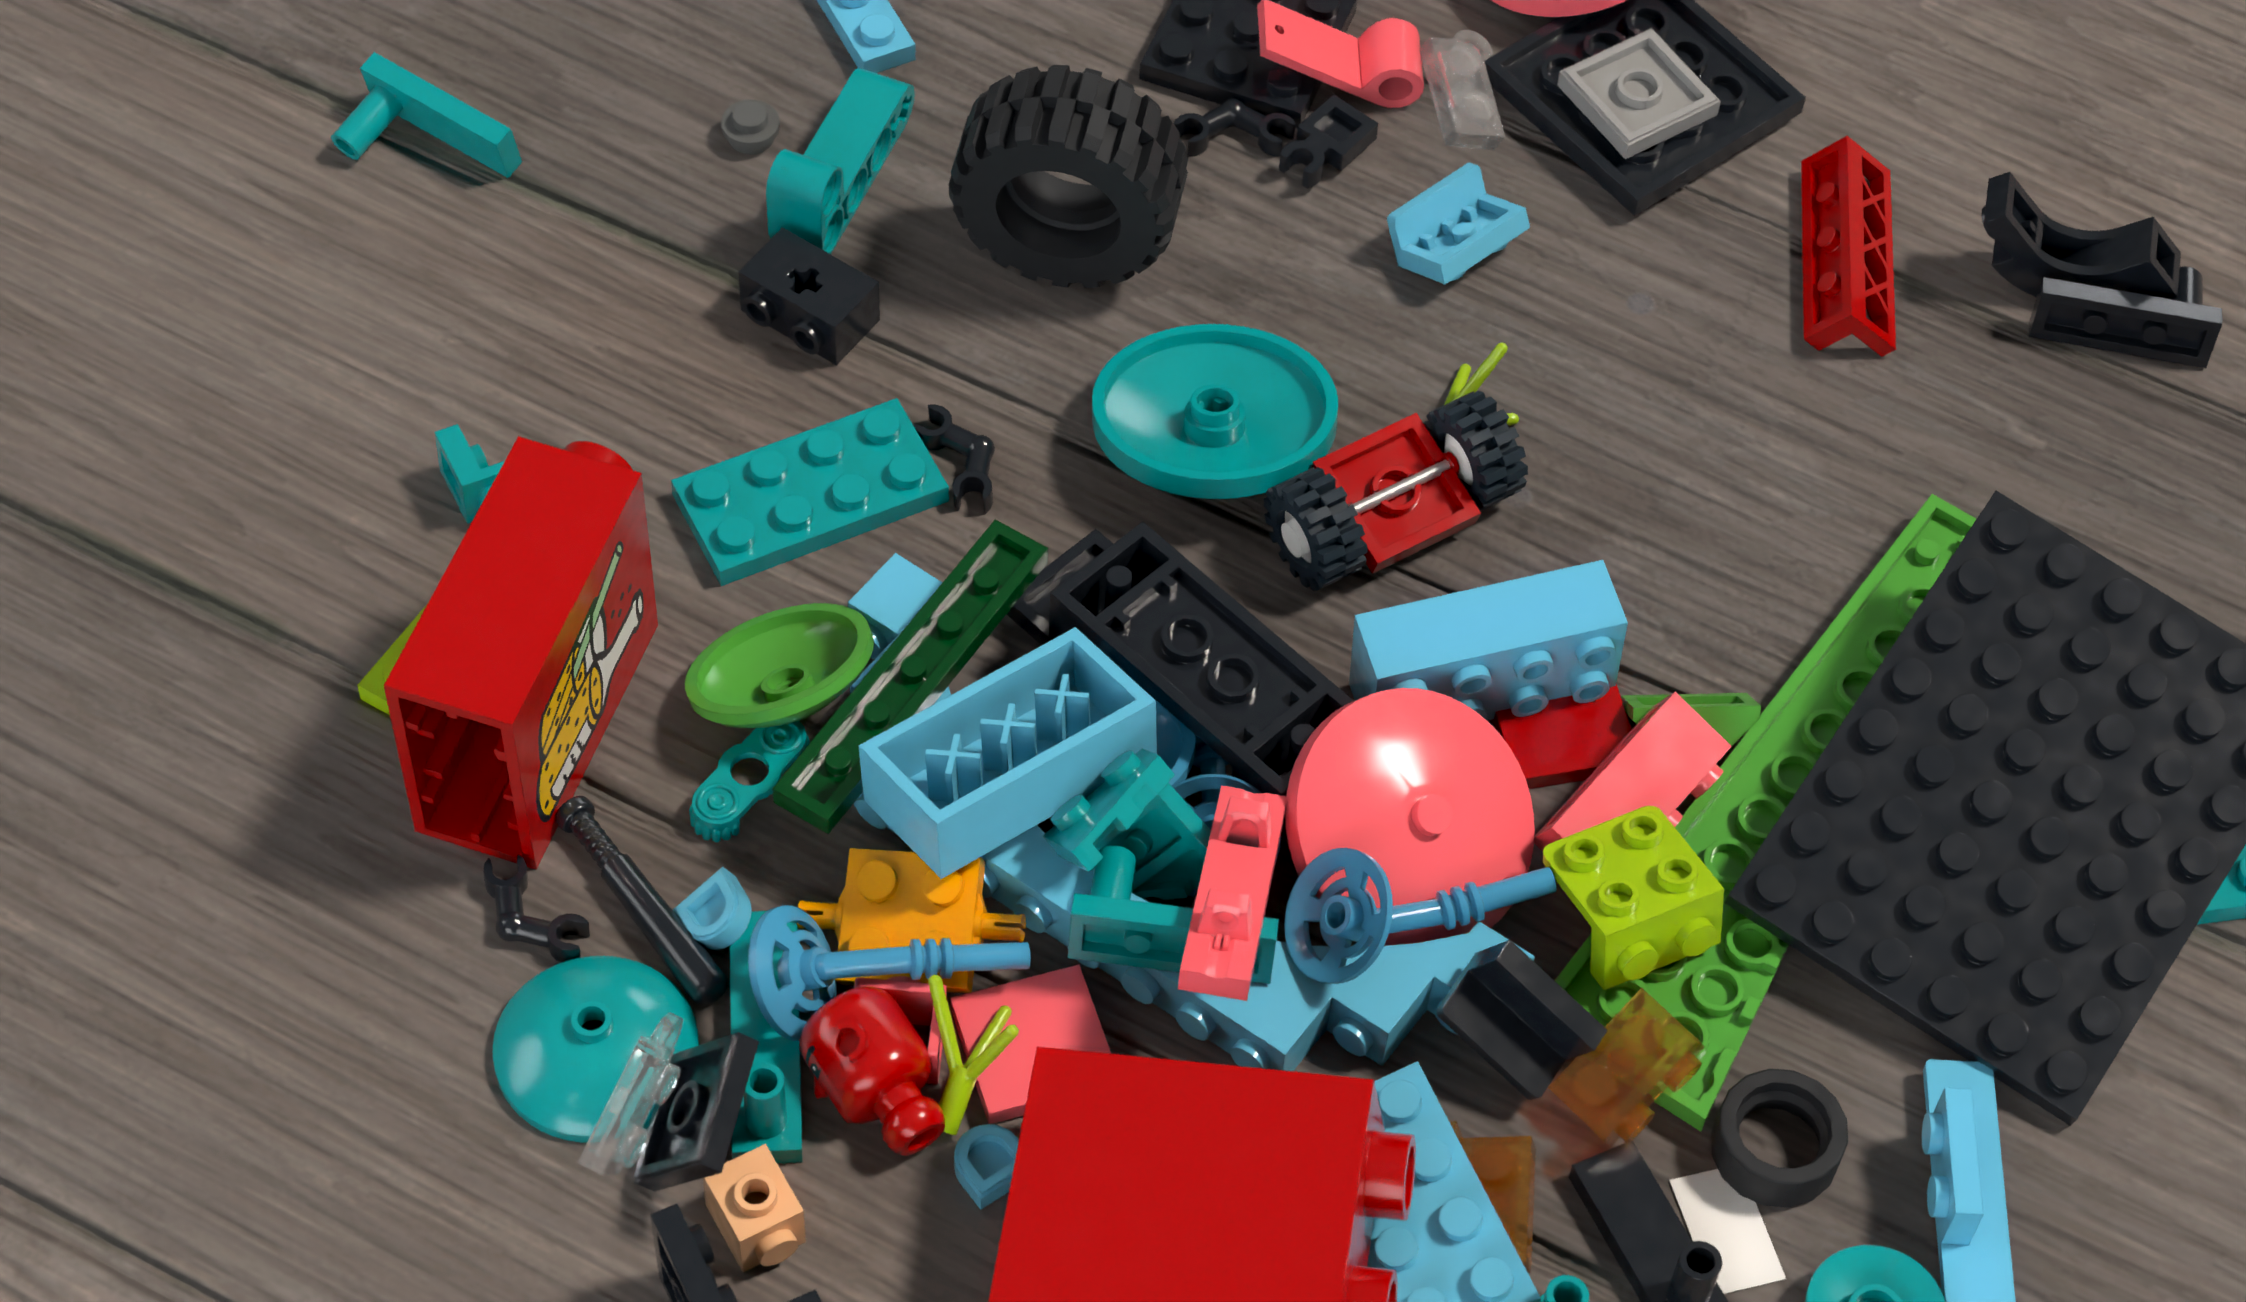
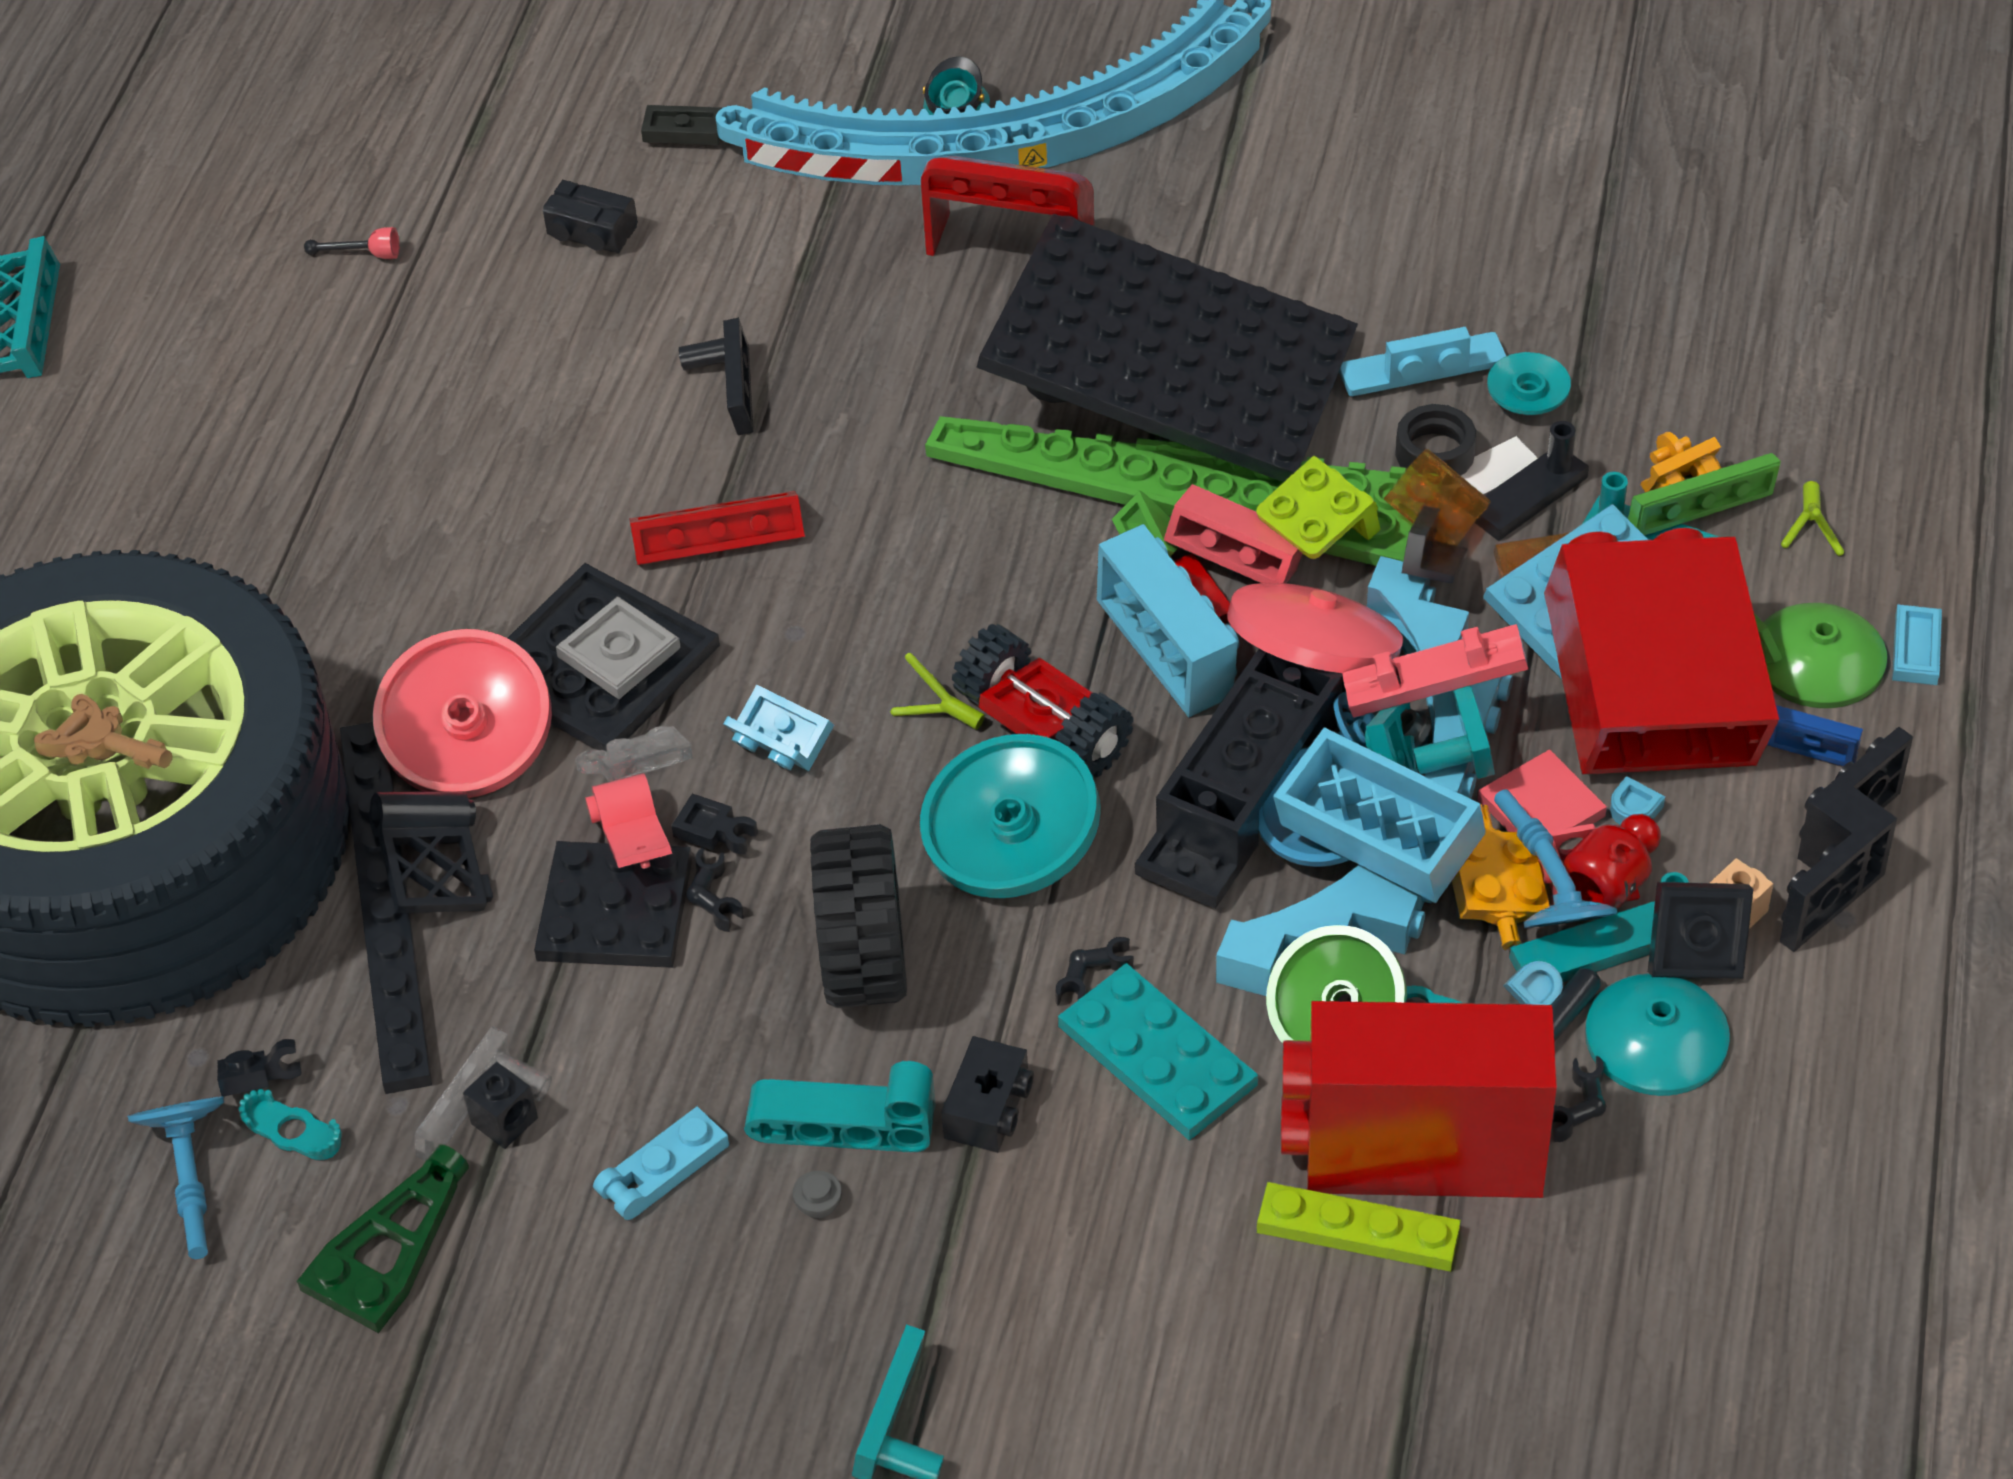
camera: 100 degrees left, 5 degrees down
(464, 470) = (1241, 1253): teal bracket -> none
(644, 1081) = (1704, 970): clear hinge -> none
(912, 671) = (1325, 901): dark green plate -> none
(963, 1077) = (1591, 816): lime plant -> none
(1127, 789) = (1409, 742): teal wing -> none
(1359, 920) = (1409, 622): dark azure dish -> none
(2033, 246) = (692, 396): black arch -> none

